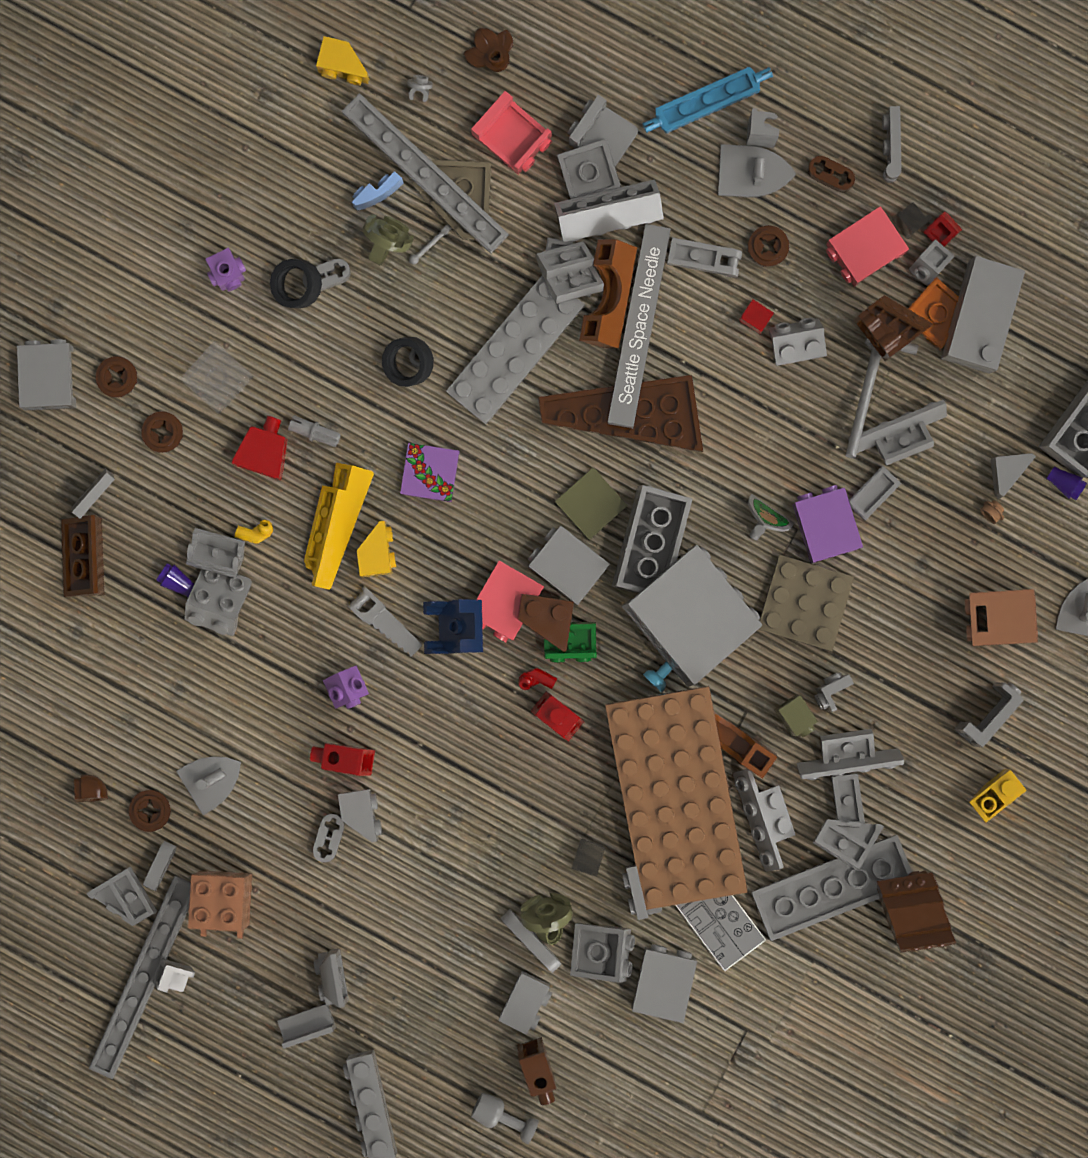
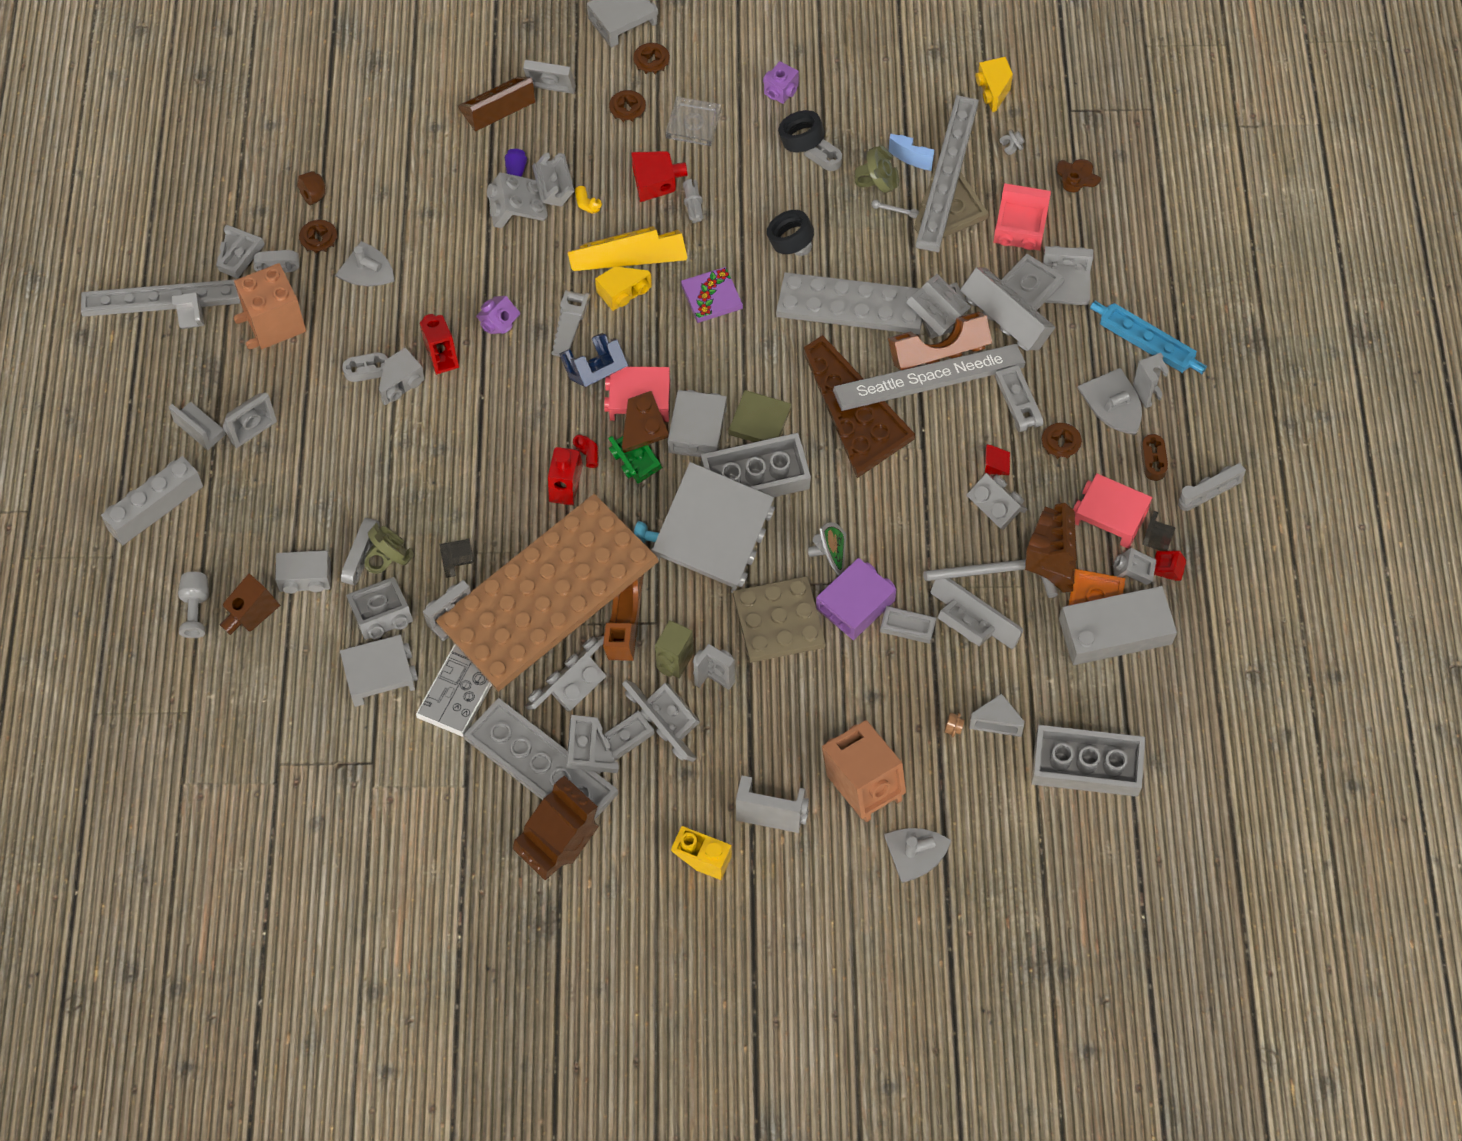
camera: 60 degrees right, 25 degrees down
(1068, 483) = (1019, 773): dark purple cone -> none

